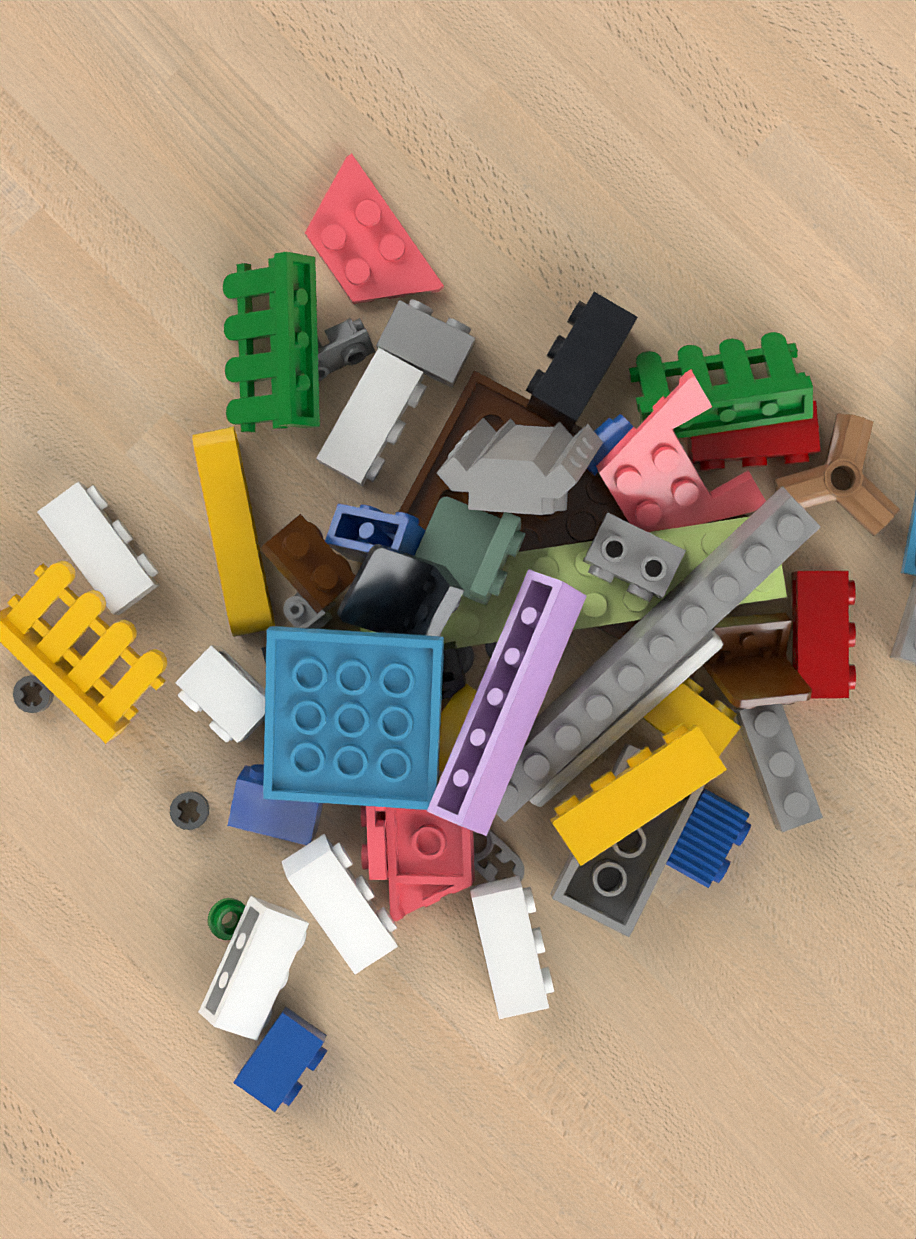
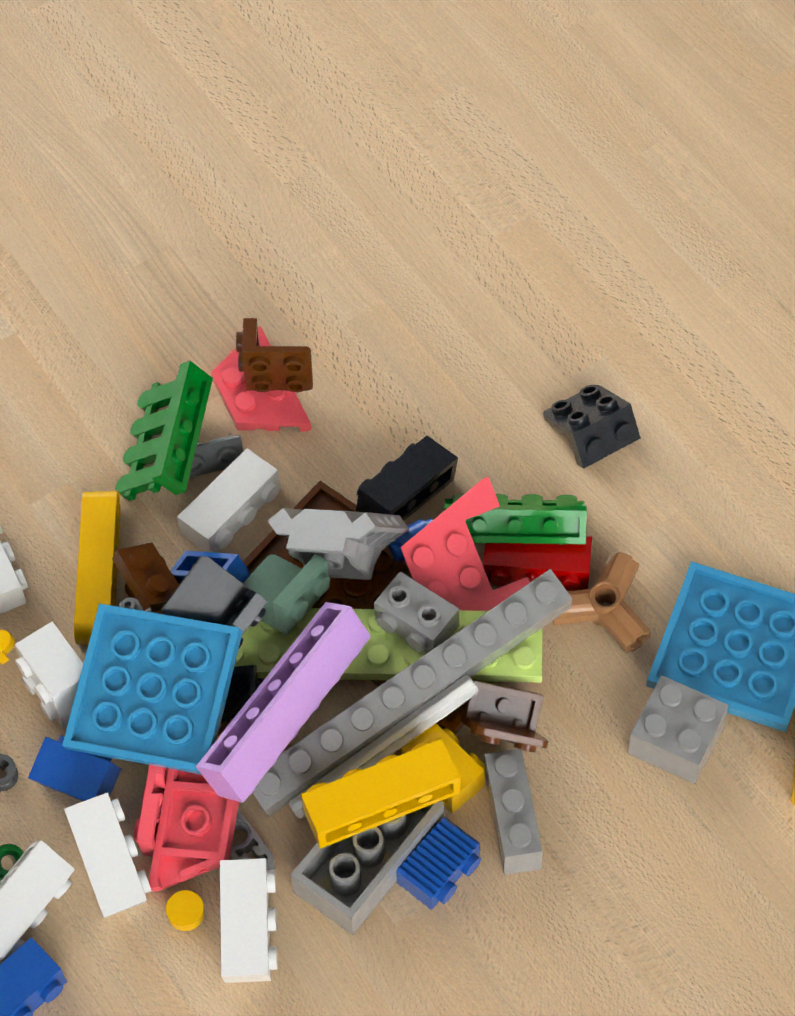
camera: 10 degrees right, 30 degrees down
(378, 242) = (272, 366): none -> reddish brown bracket
(427, 342) = (297, 460): light grey brick -> none
(437, 936) = (185, 910): none -> yellow tile
(787, 226) = (595, 423): none -> black bracket
(823, 631) = (570, 718): red brick -> none

